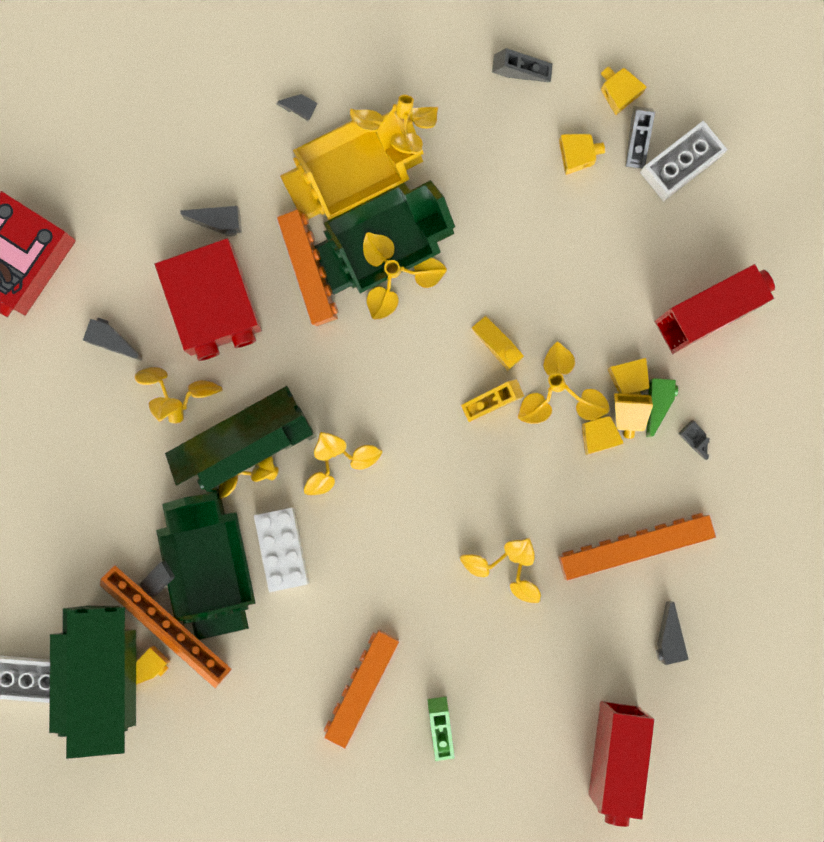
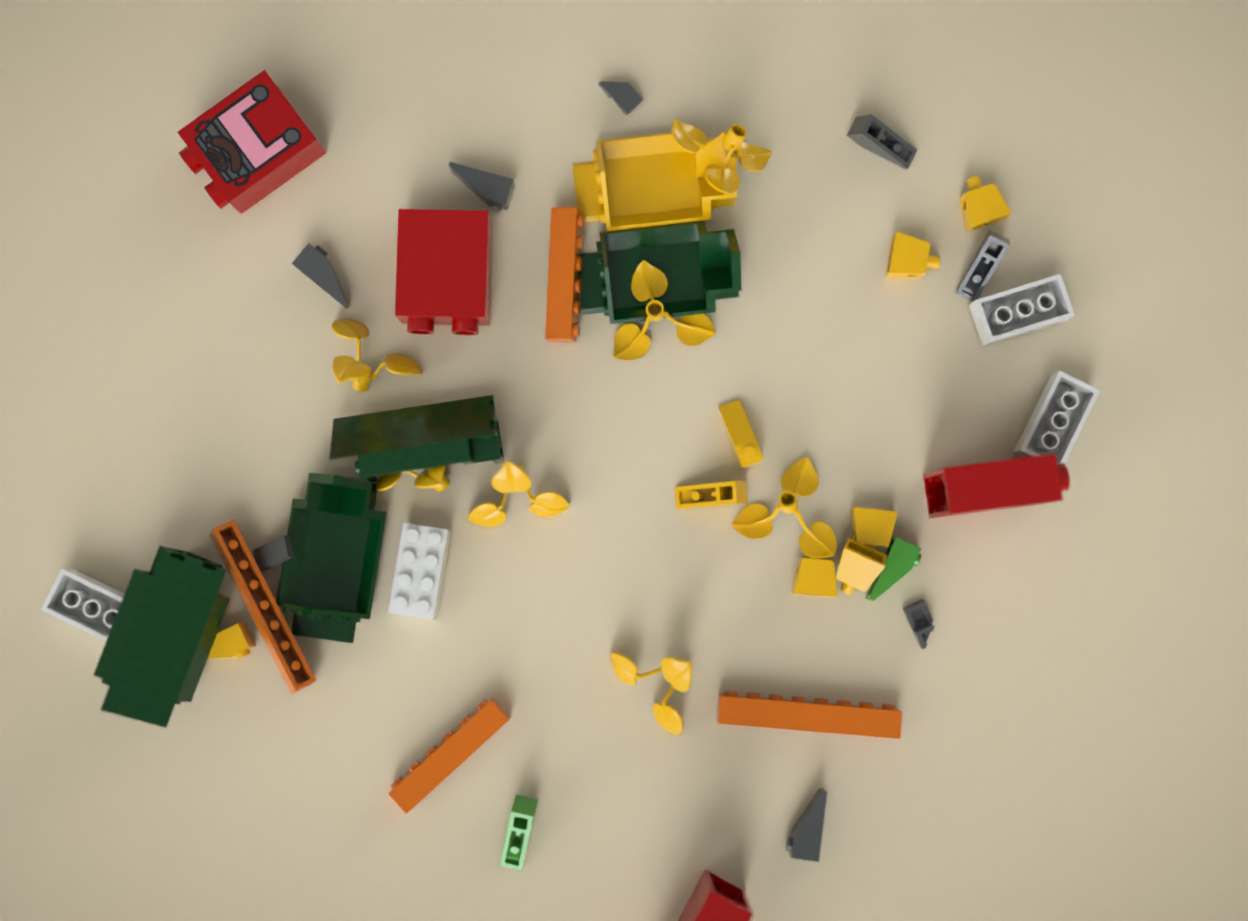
camera: 25 degrees right, 0 degrees up
(743, 235) = (1057, 418): none -> white brick

